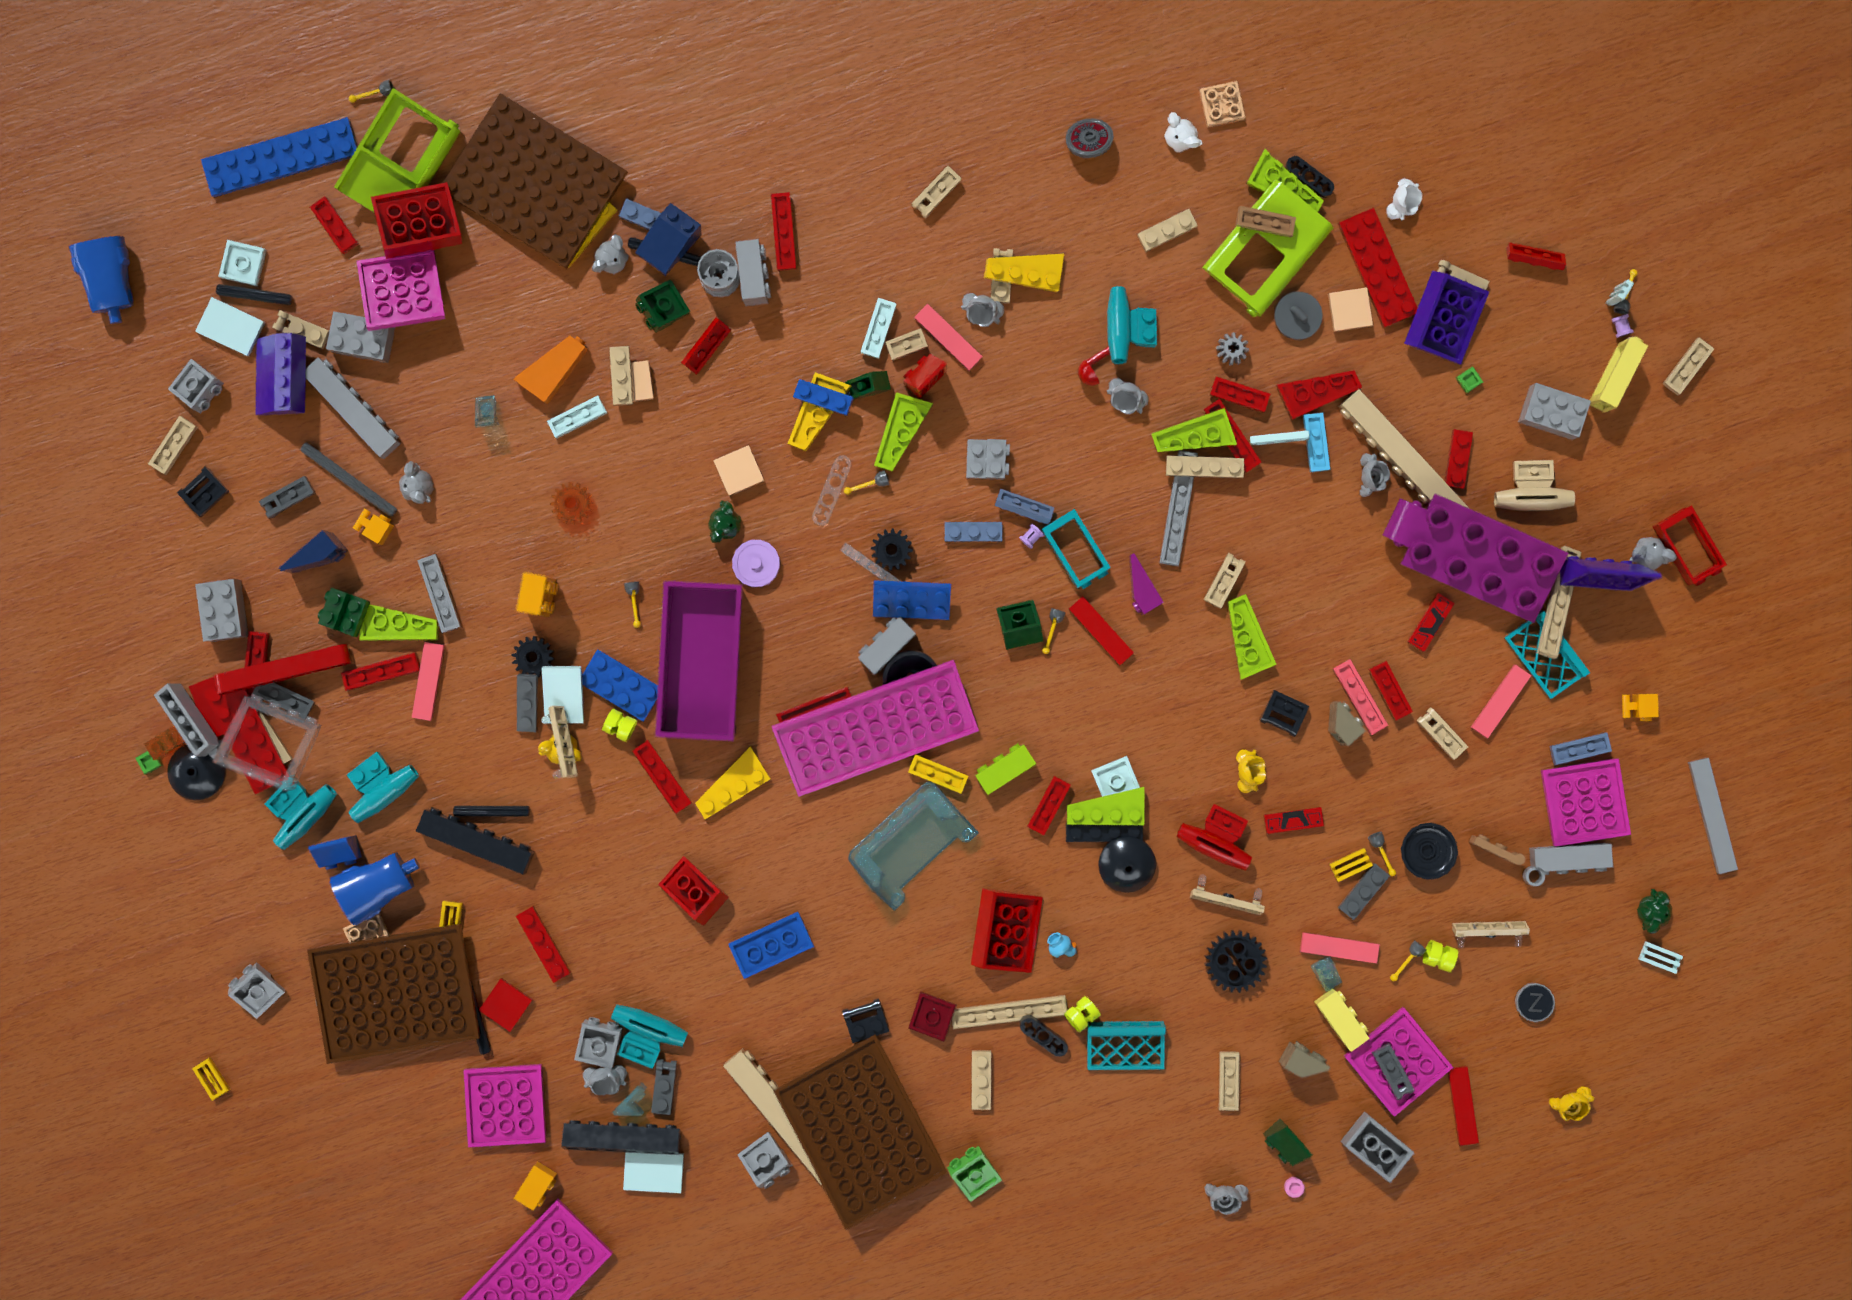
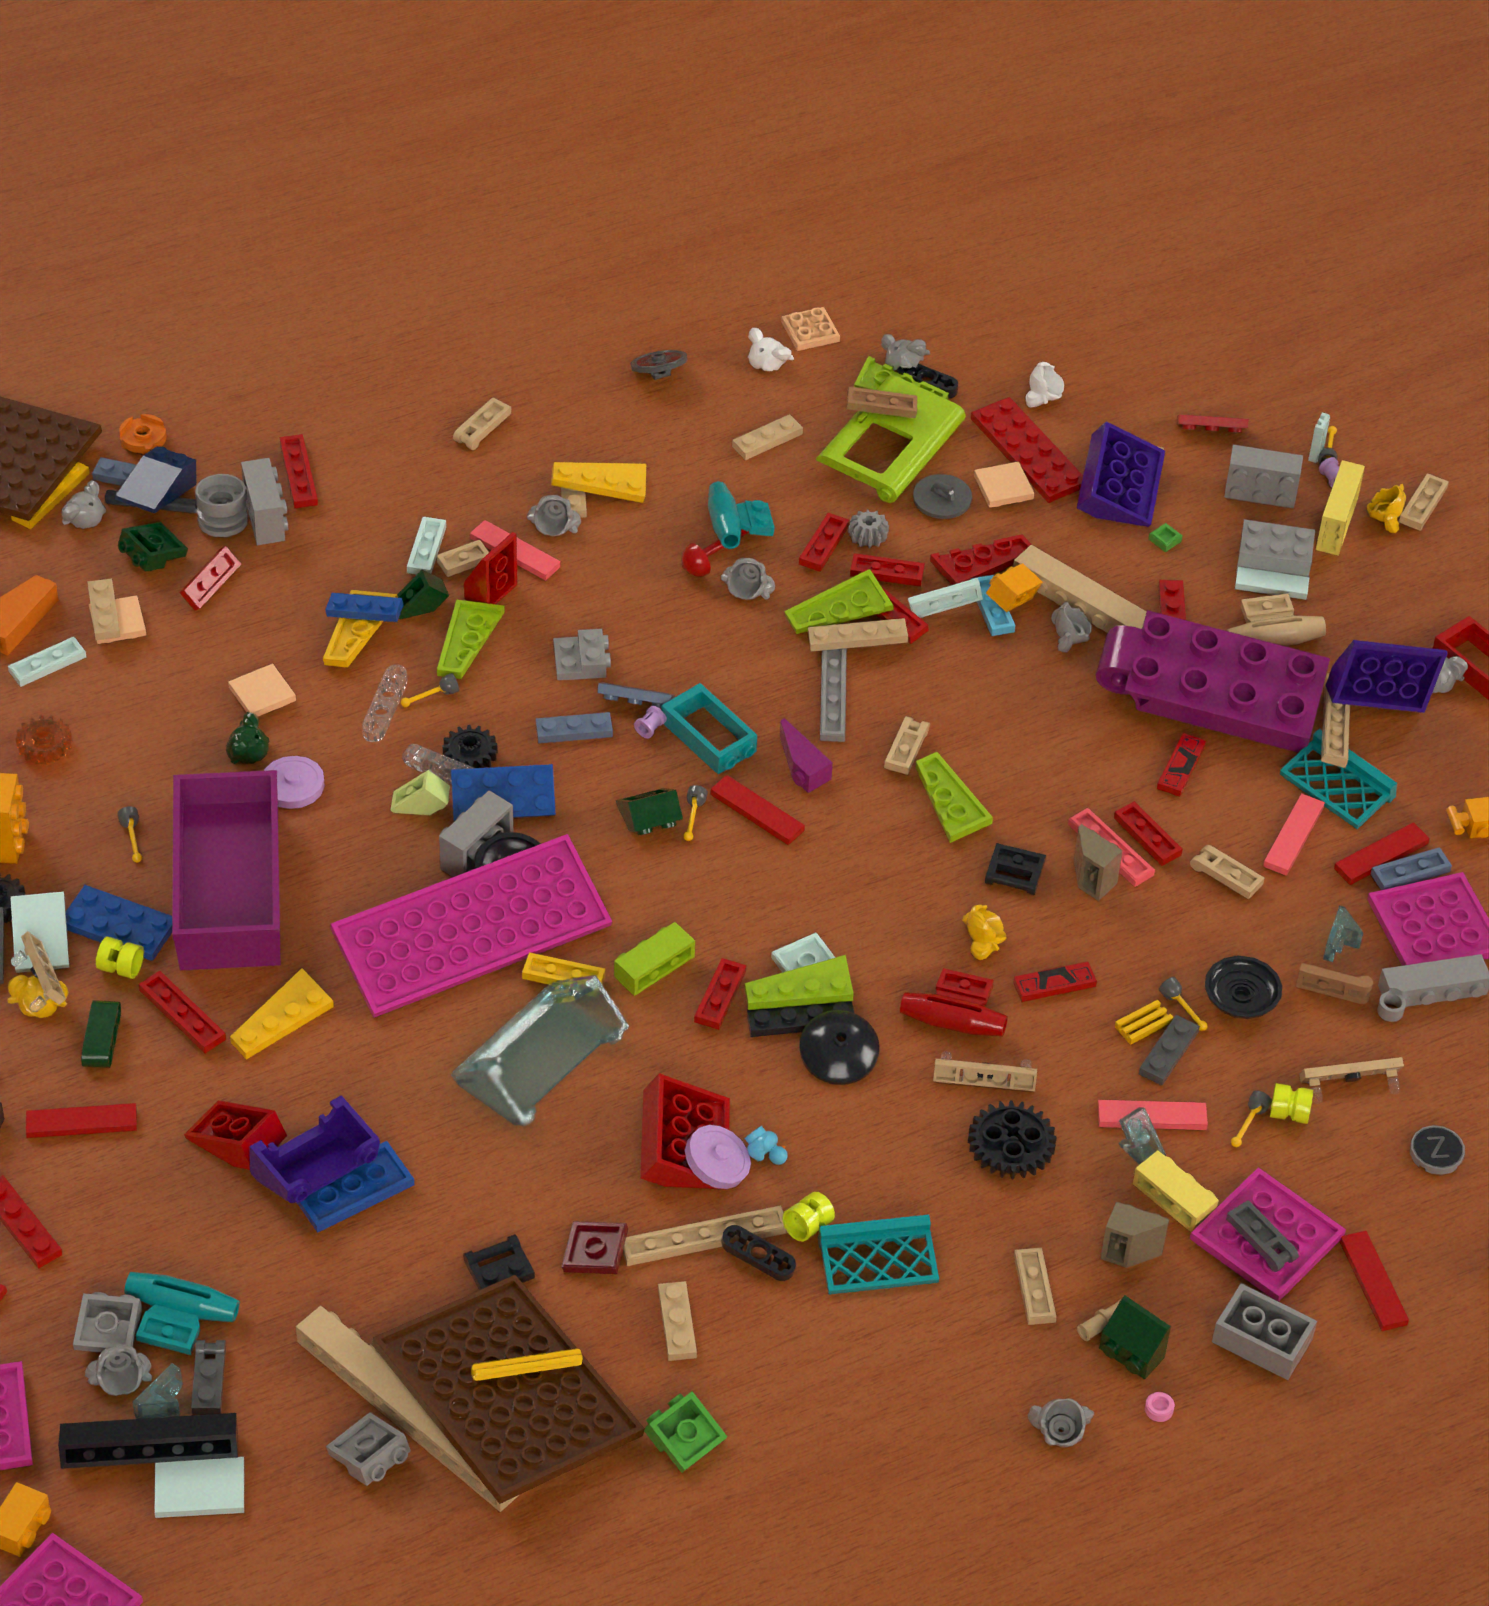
camera: 10 degrees left, 40 degrees down
(587, 863) = (81, 1120): none -> red tile
(604, 791) = (101, 1034): none -> dark green beam
(663, 185) = (137, 443): none -> orange plate
(745, 929) = (316, 1156): none -> dark purple windscreen
(850, 593) = (421, 795): none -> yellowish green slope
(872, 1121) = (526, 1364): none -> yellow axle
(1026, 955) = (717, 1157): none -> lavender wheel
(1194, 358) = (824, 542): none -> red plate
(1270, 1117) = (1097, 1323): none -> tan pin
(1299, 150) = (903, 352): none -> light grey hair
(1336, 433) = (1013, 587): none -> light orange brick
(1513, 800) = (1343, 932): none -> clear light blue slope
(1543, 440) = (1272, 583): none -> light aqua tile
(1562, 727) = (1380, 852): none -> red tile
(1563, 333) = (1263, 476): none -> light grey brick
(1663, 369) = (1388, 506): none -> yellow hair

